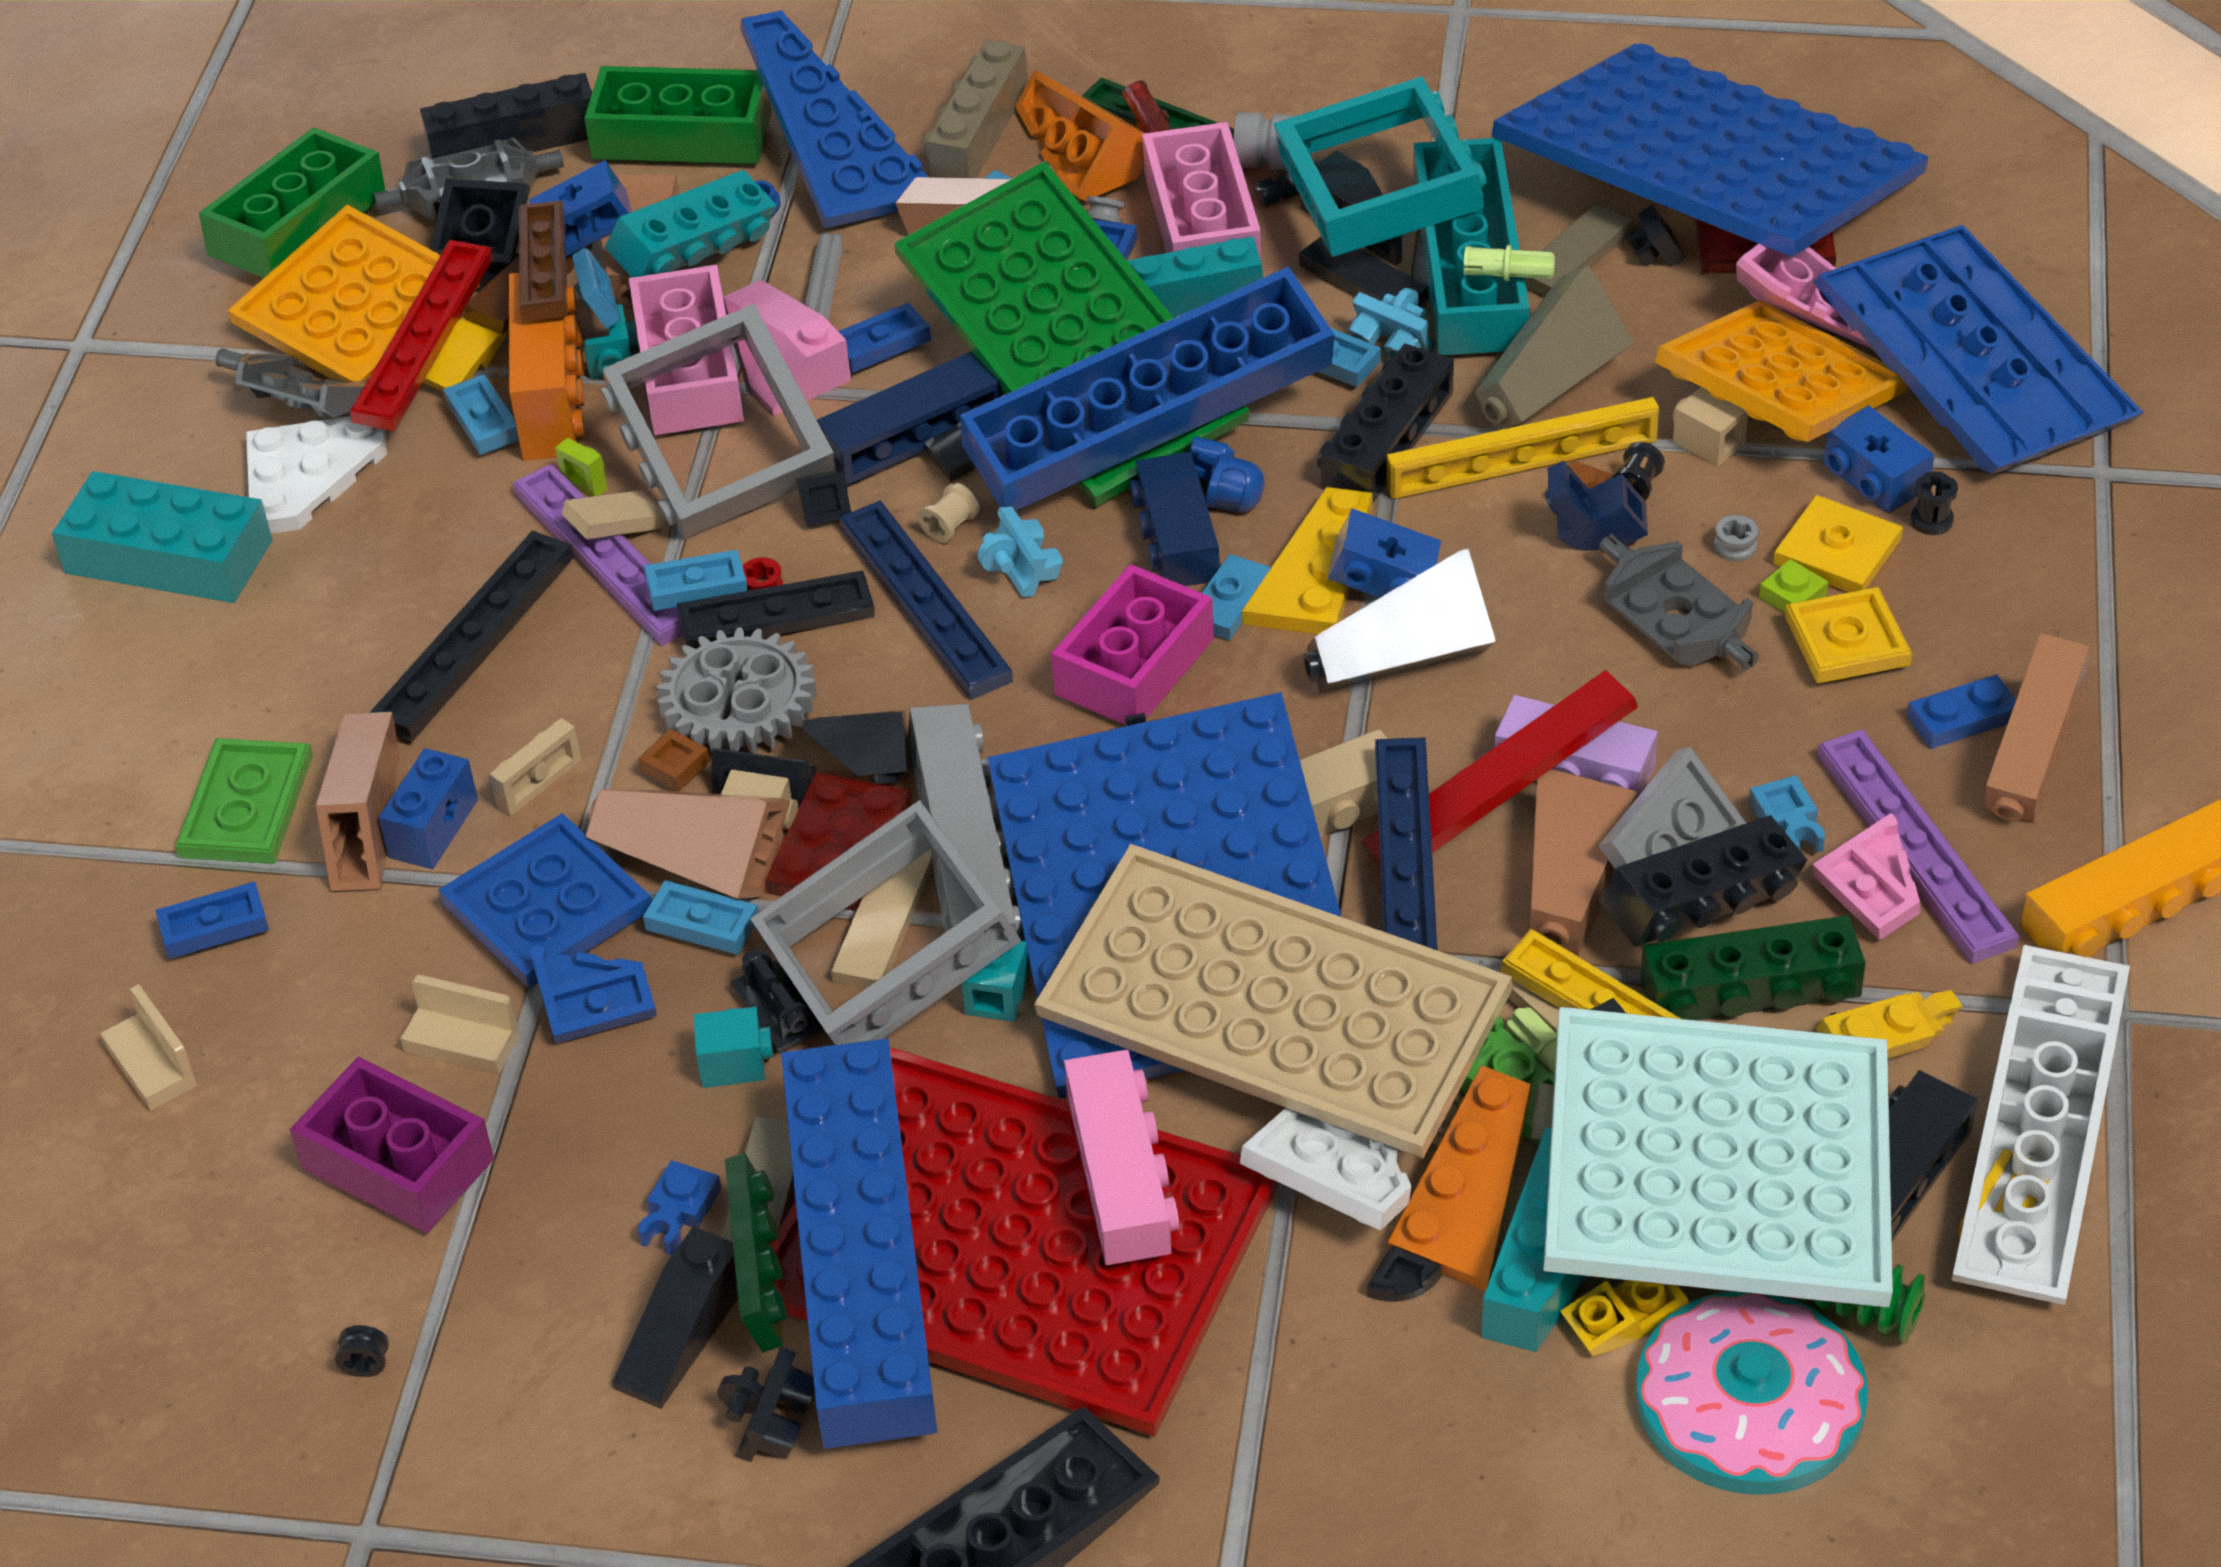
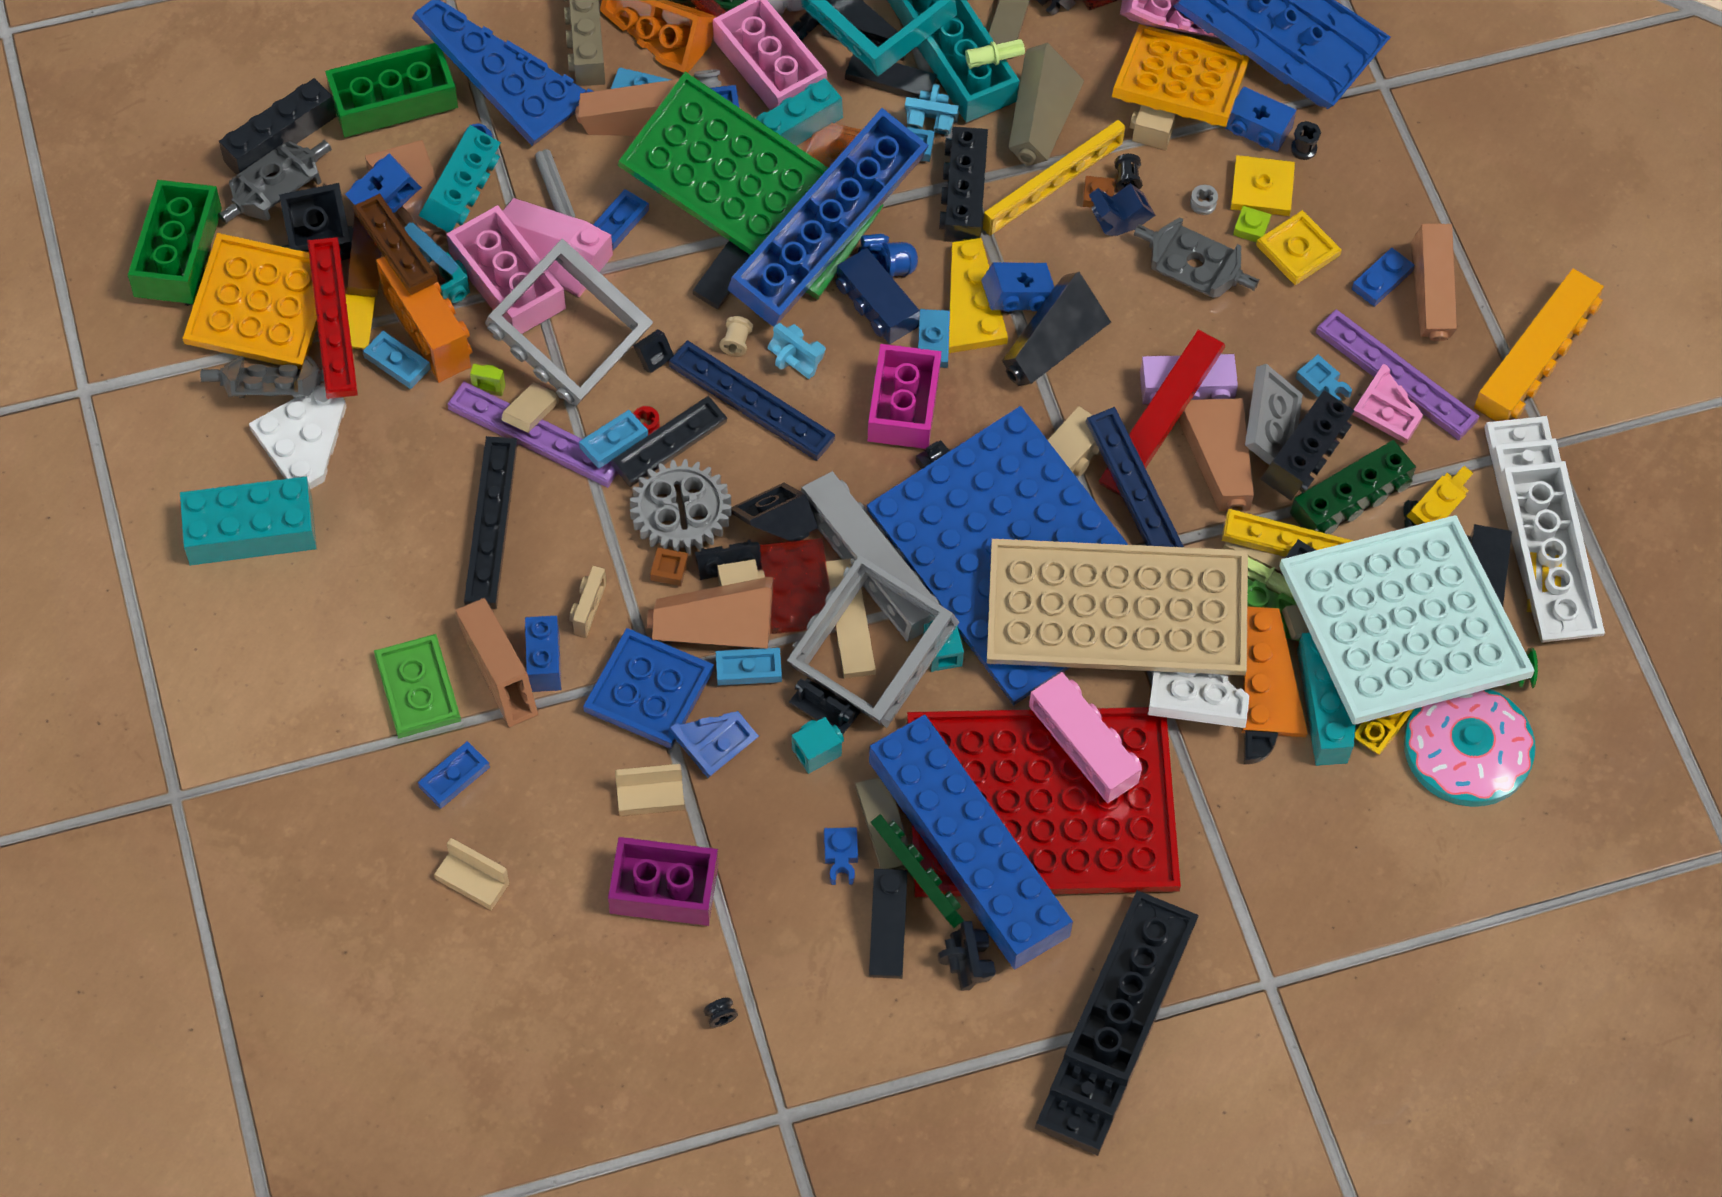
camera: 30 degrees left, 15 degrees up
(906, 415) = (677, 273): dark blue brick -> none

